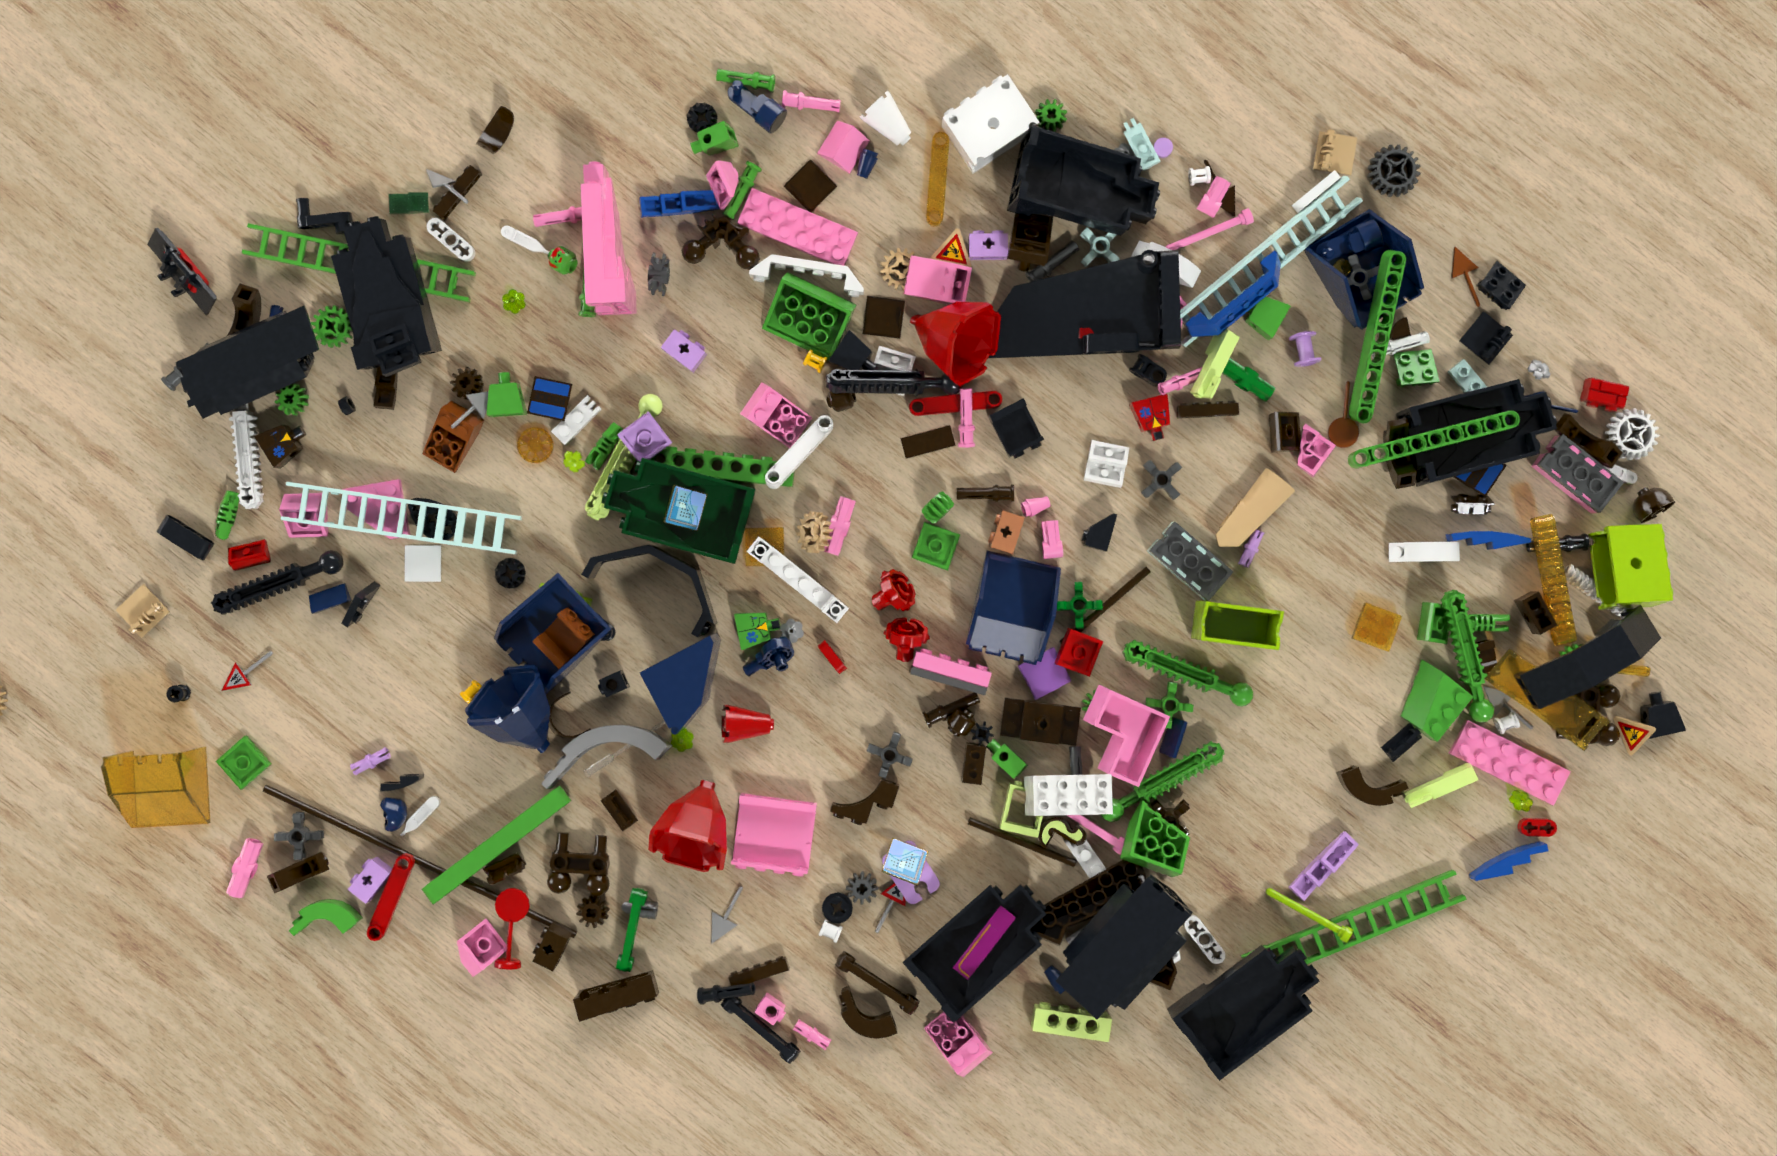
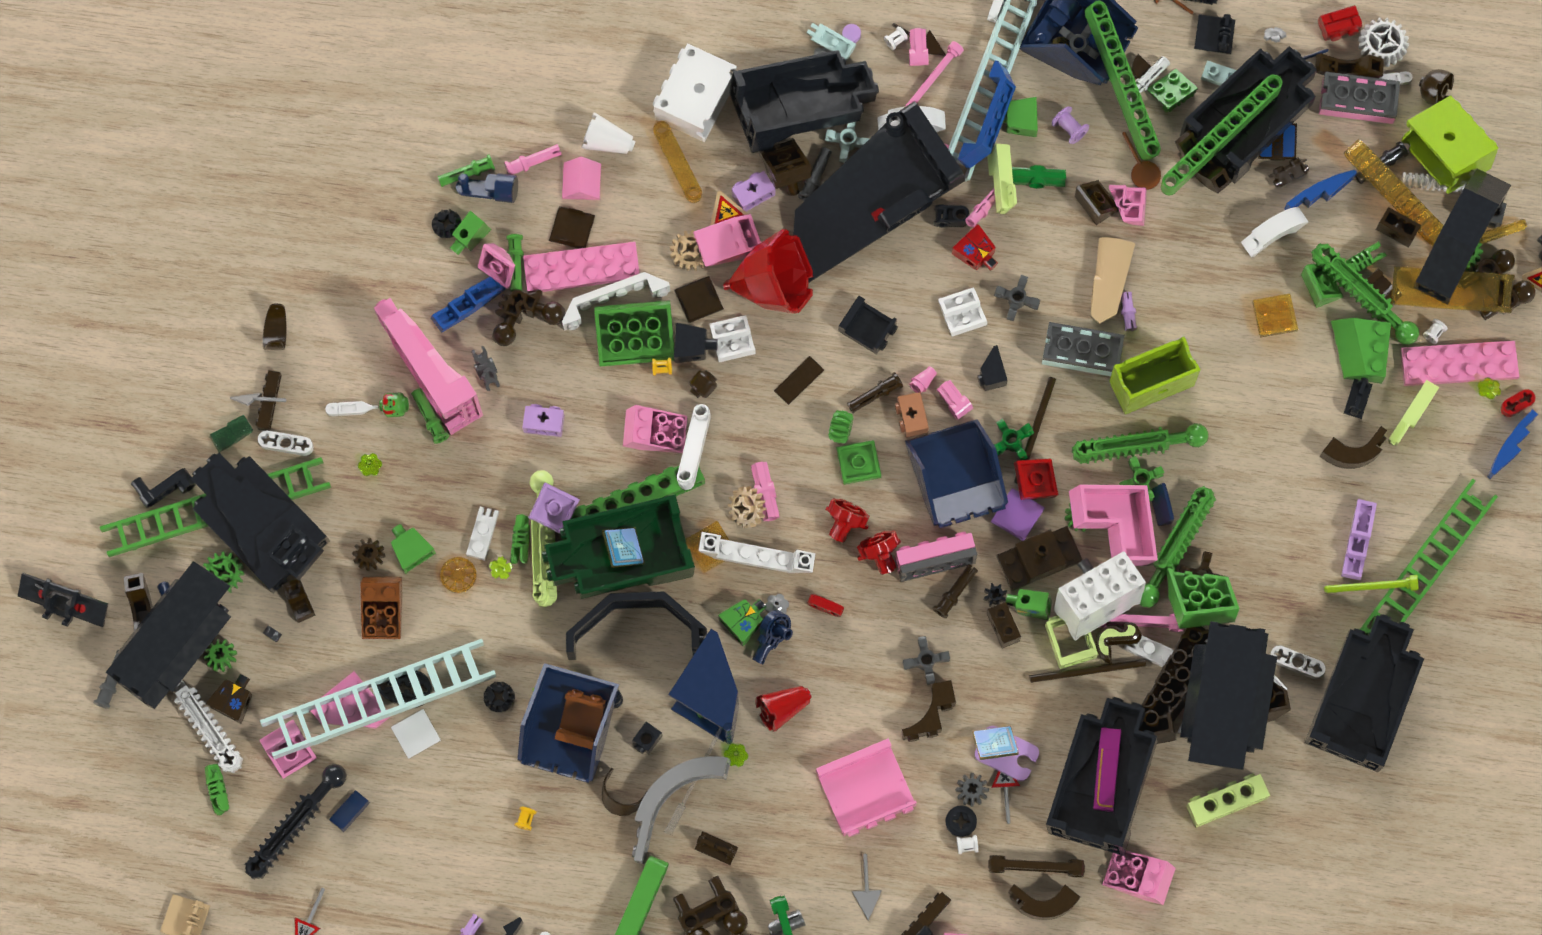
camera: 25 degrees left, 15 degrees down
(185, 537) = (189, 829): black beam -> none
(248, 555) = (255, 814): red slope -> none
(359, 604) = (381, 794): black wing -> none
(479, 402) = (390, 562): light grey piece -> none
(513, 709) = (573, 803): dark blue piece -> none
(549, 398) = (449, 526): piece -> none
(571, 215) = (381, 363): bright pink pin -> none
(692, 831) = (795, 823): red piece -> none
(866, 163) = (609, 181): dark blue cone -> none
(887, 382) = (736, 345): black gear -> none
(951, 403) = (803, 334): red piece -> none
(961, 722) = (971, 595): dark brown head -> none
(966, 427) = (825, 347): bright pink pin -> none
(1052, 975) = (1193, 771): dark blue cone -> none
(1058, 119) = (742, 52): bright green gear -> none
(1207, 410) = (1020, 220): dark brown piece -> none
(1500, 700) = (1418, 317): light grey piece -> none

